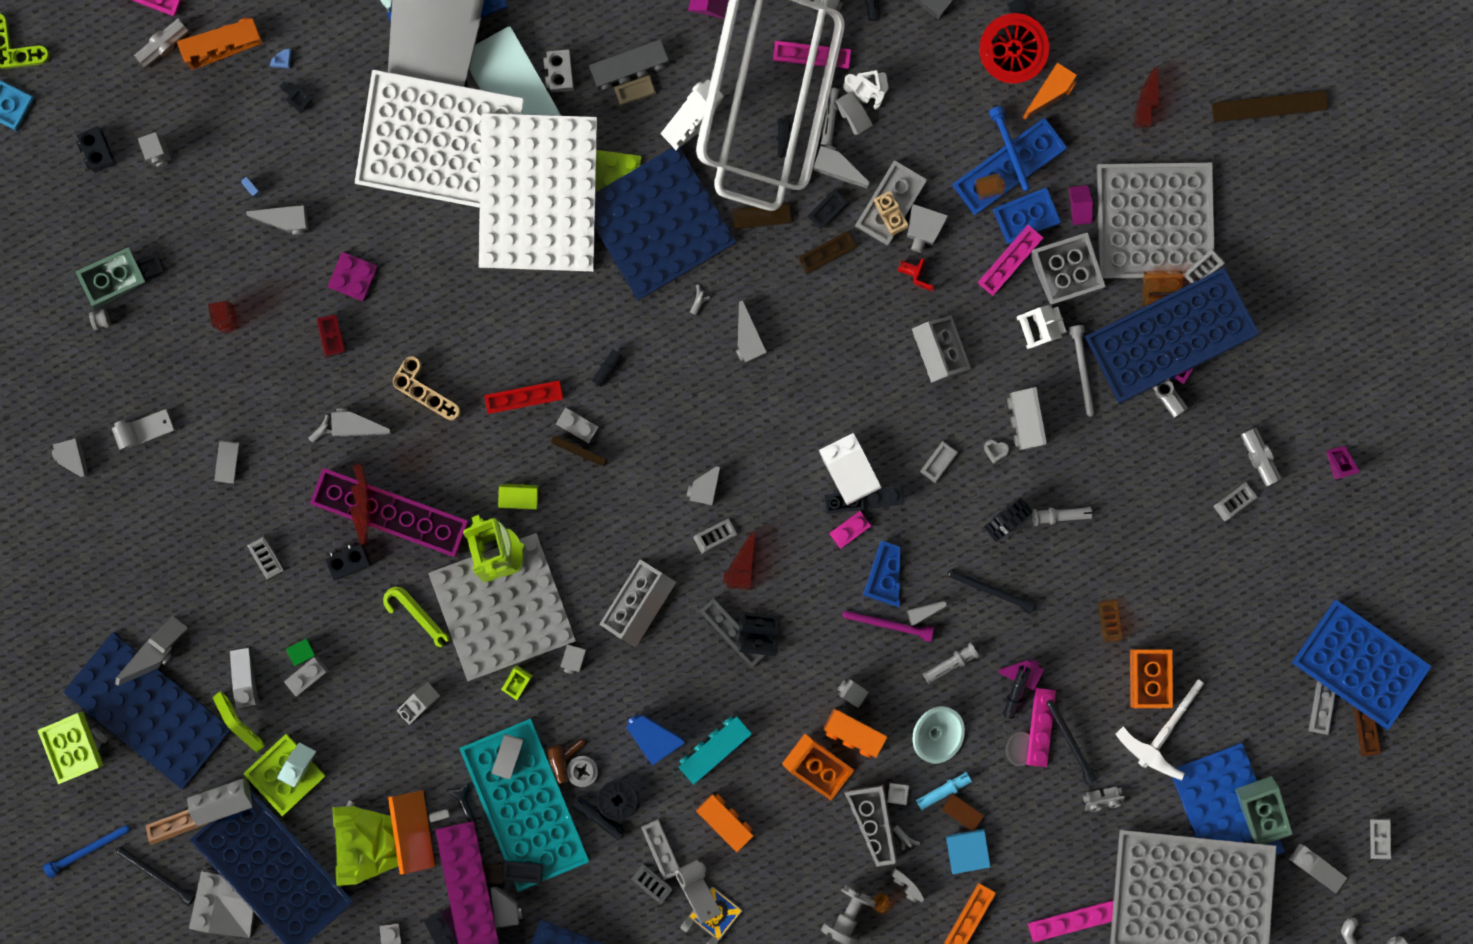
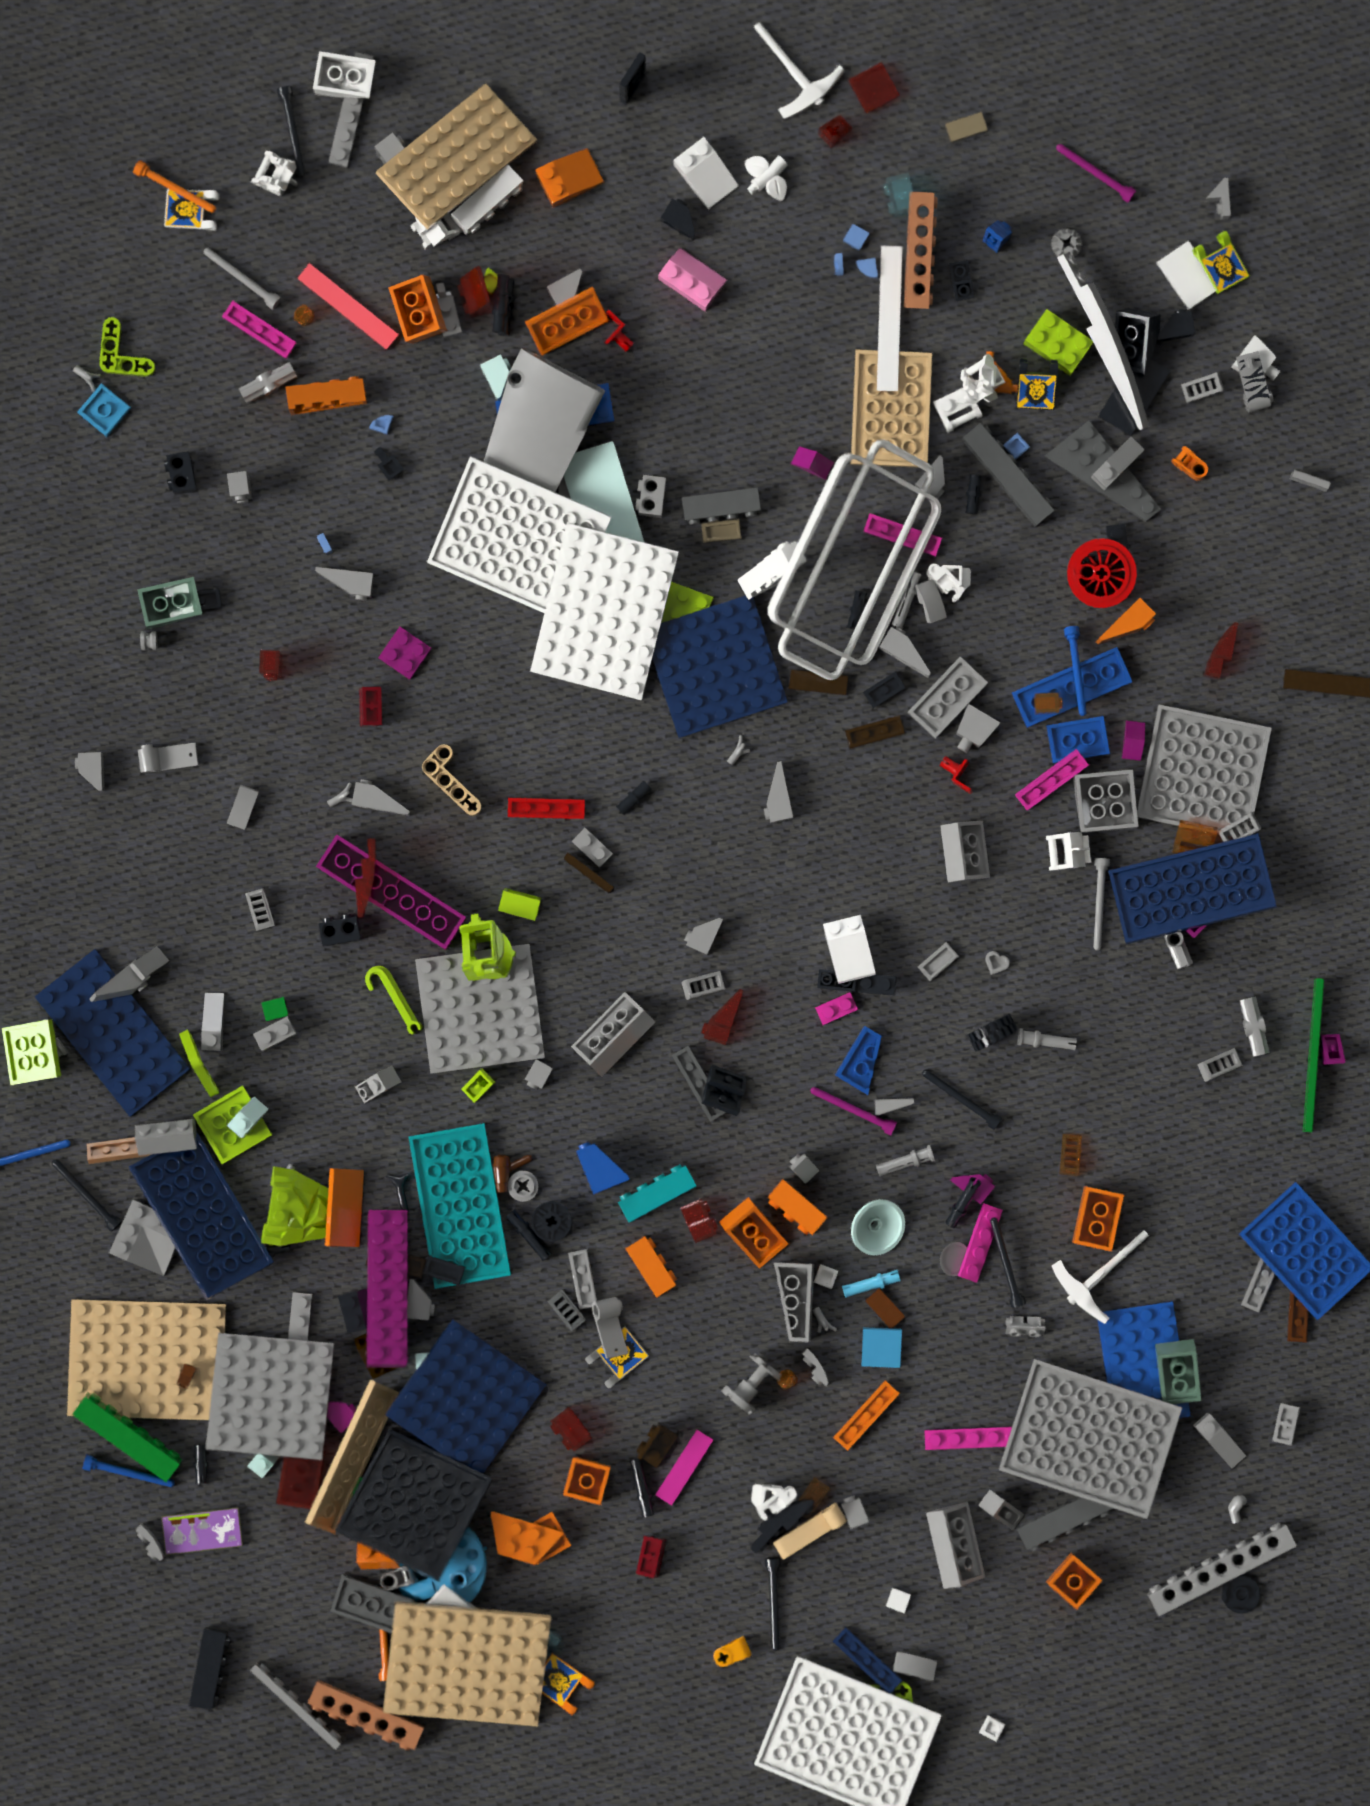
camera: 10 degrees right, 0 degrees up
(440, 815) = (375, 1197): light grey tile -> none
(507, 756) = (453, 1154): light grey slope -> none
(761, 767) = (699, 1220): none -> clear red brick
(890, 213) = (945, 707): tan slope -> none
(1027, 419) = (1033, 939): light grey slope -> none
(1324, 472) = (1313, 1055): none -> green tile

